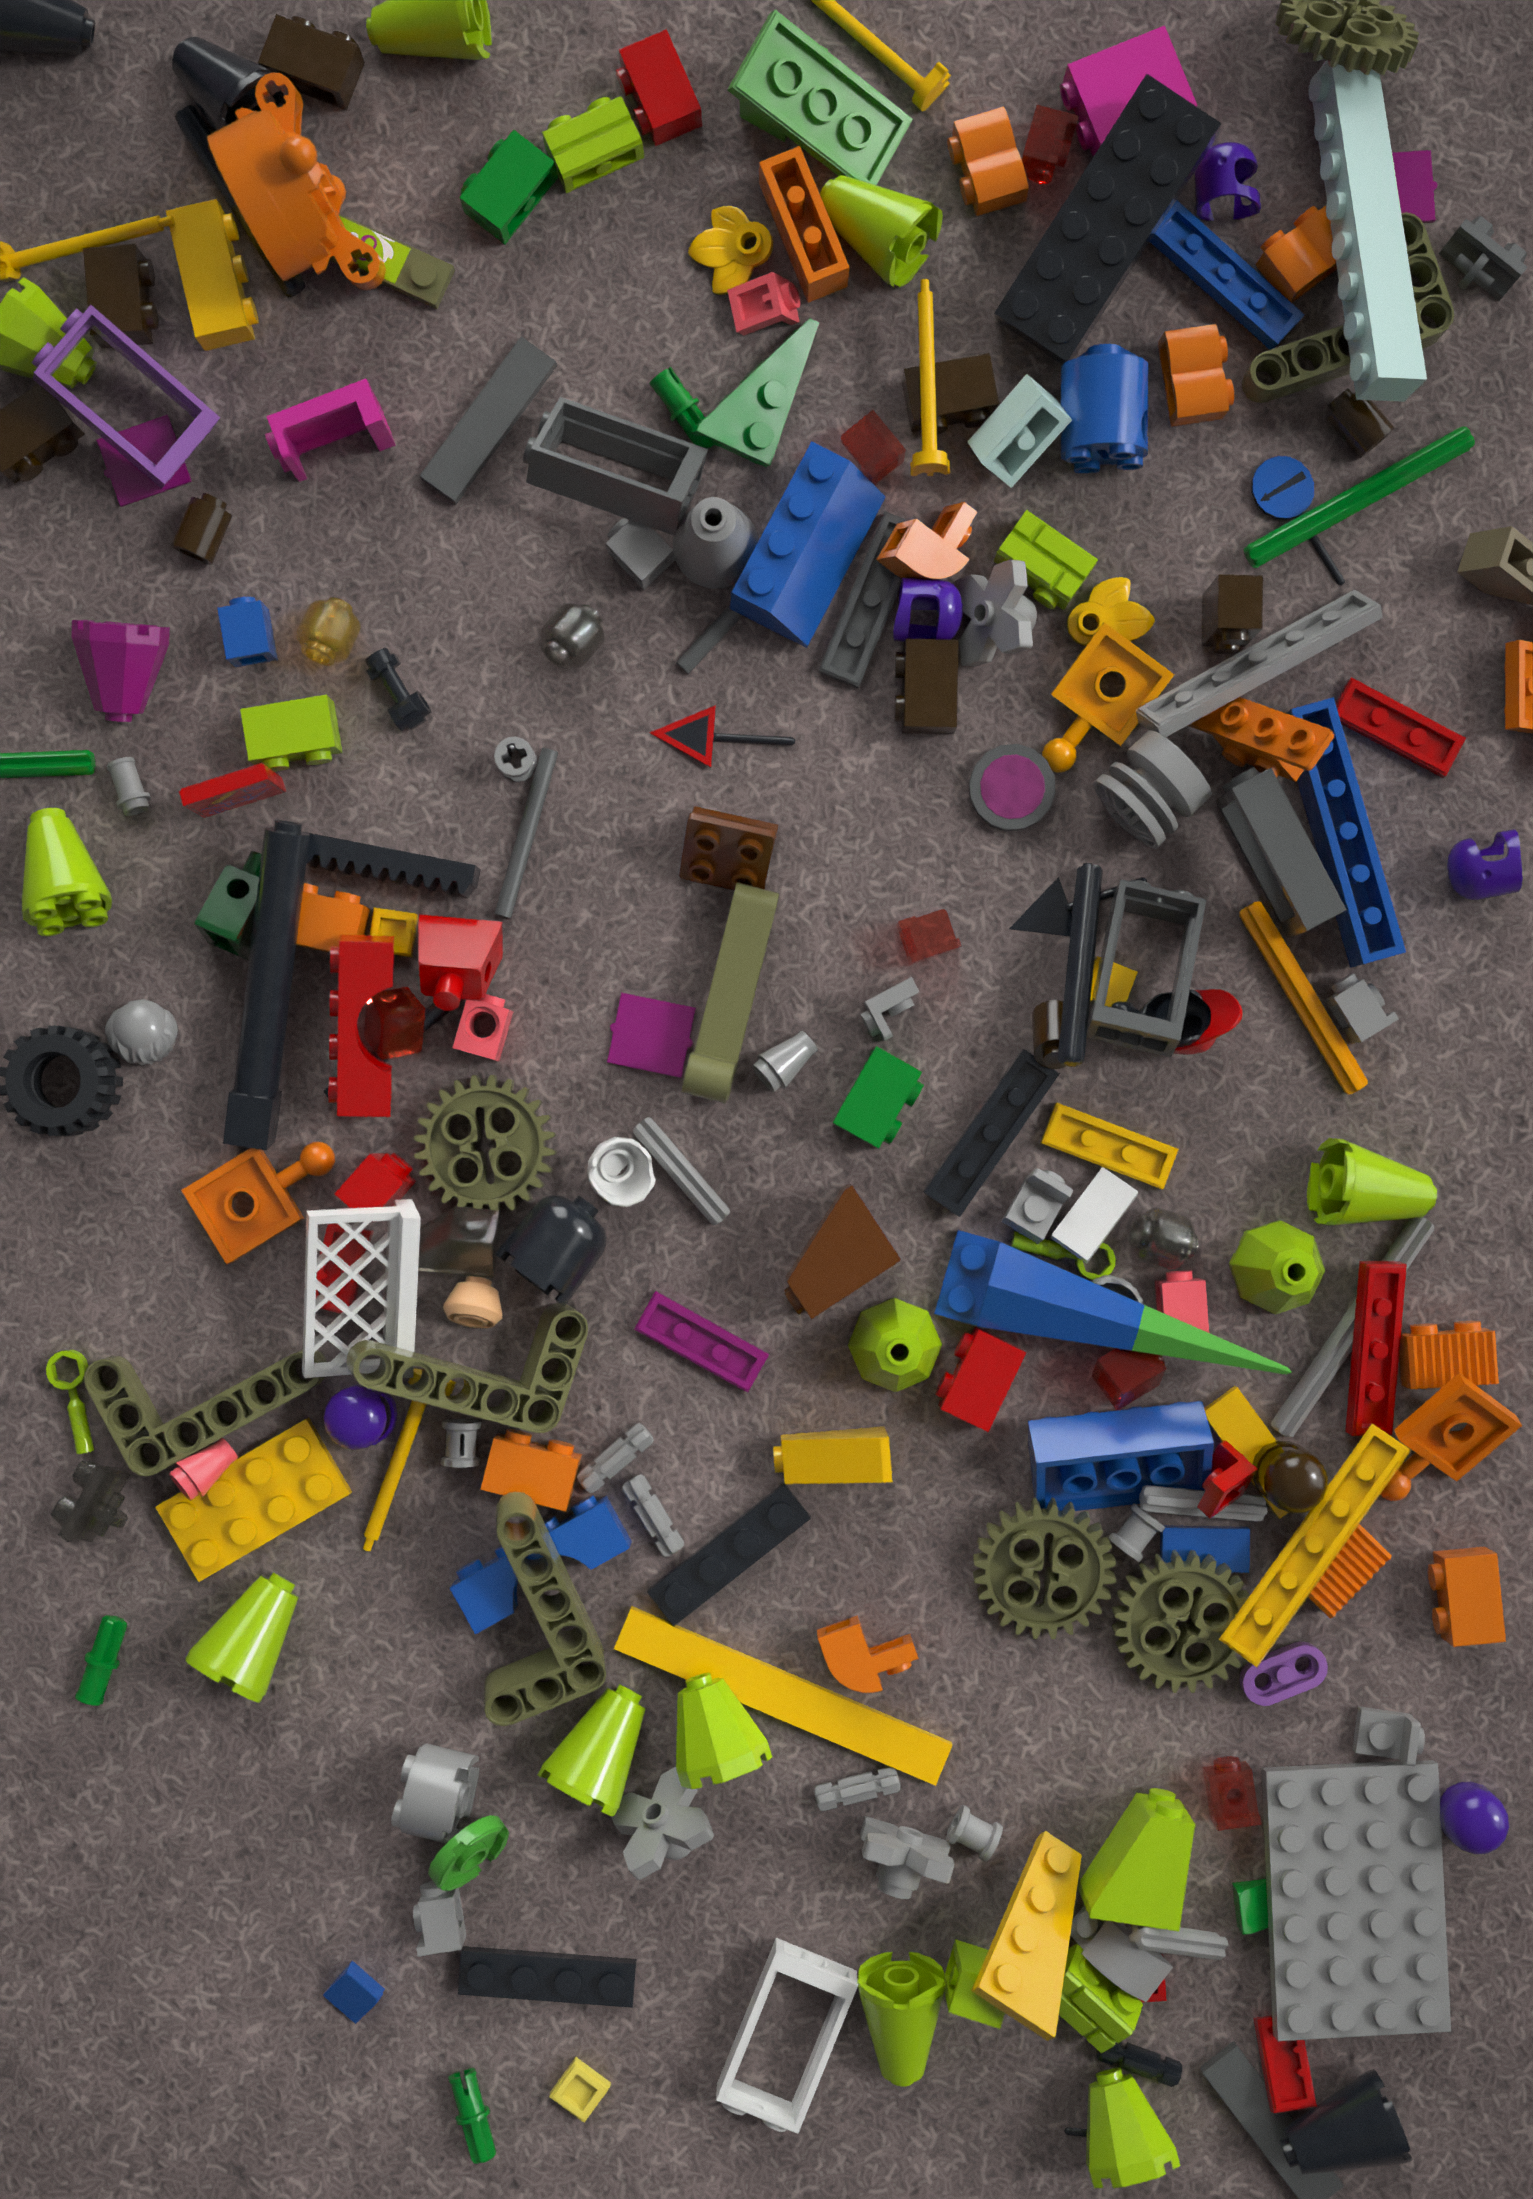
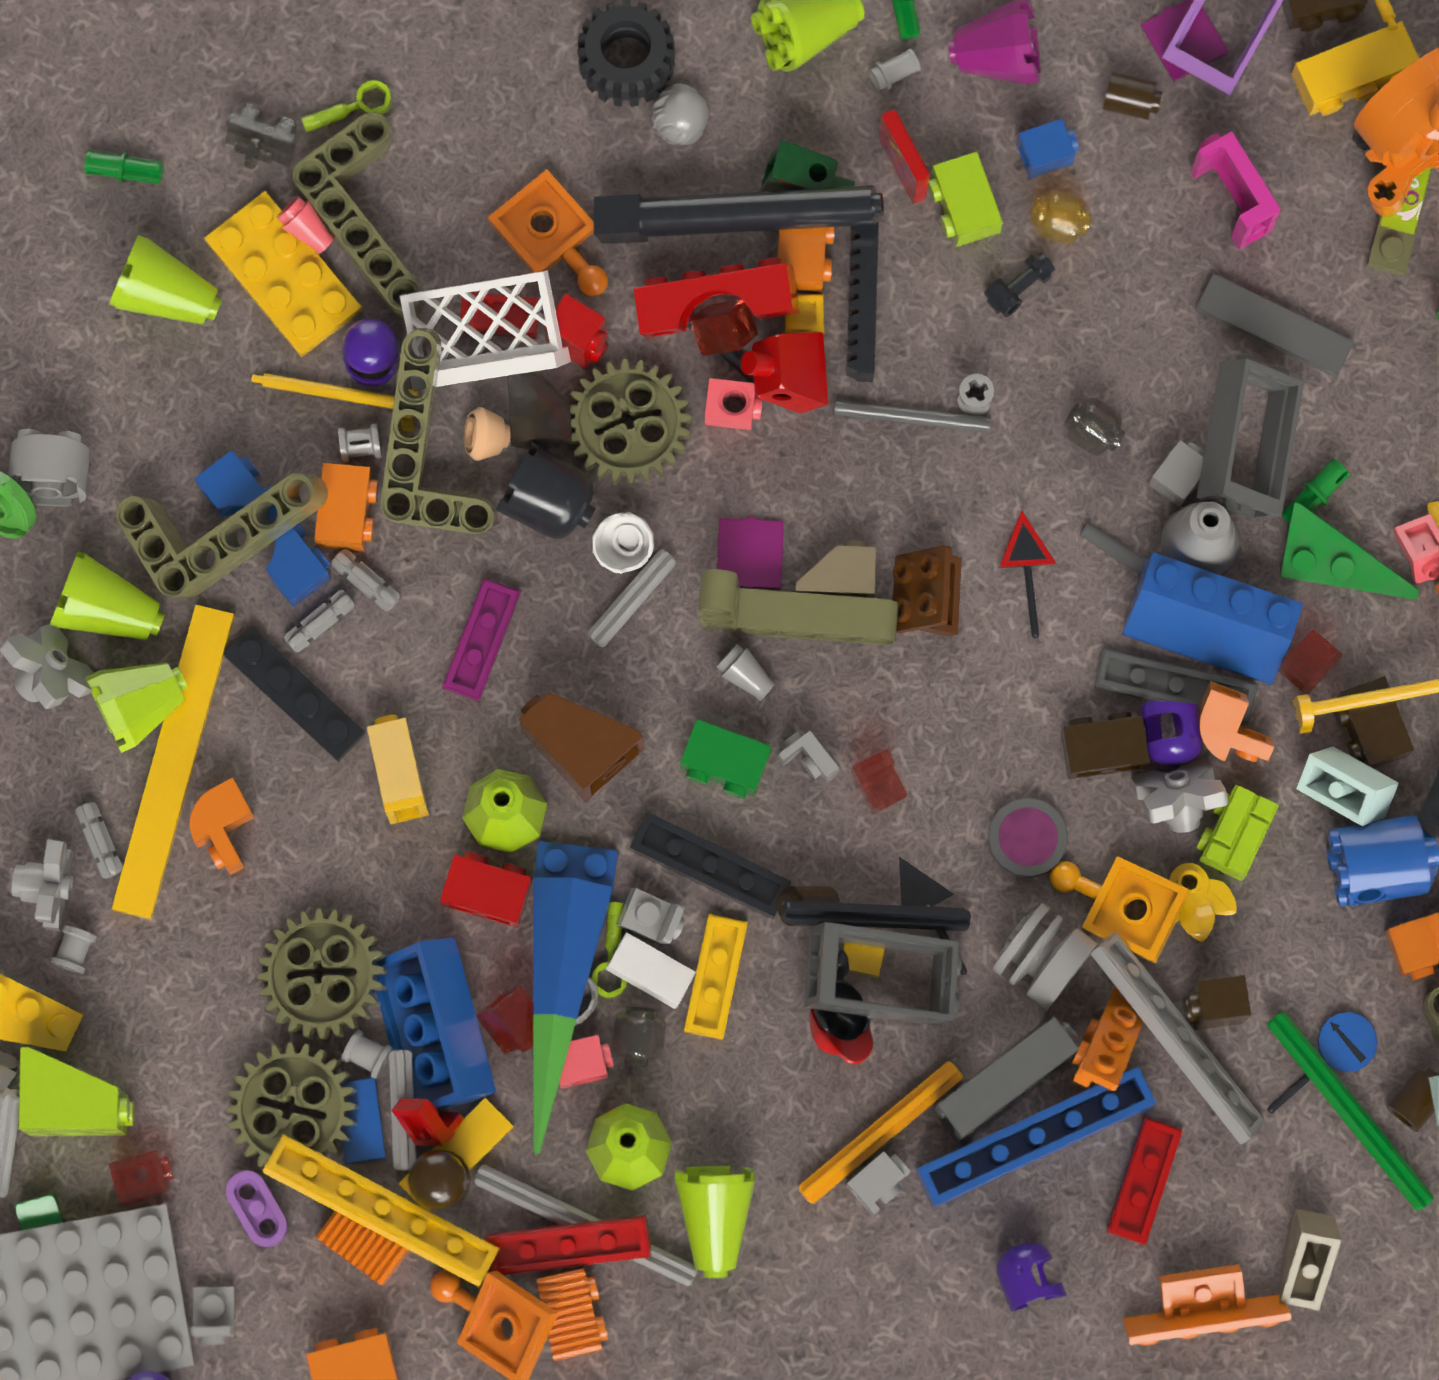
camera: 80 degrees right, 10 degrees down
(693, 936) = (843, 572): none -> dark tan slope

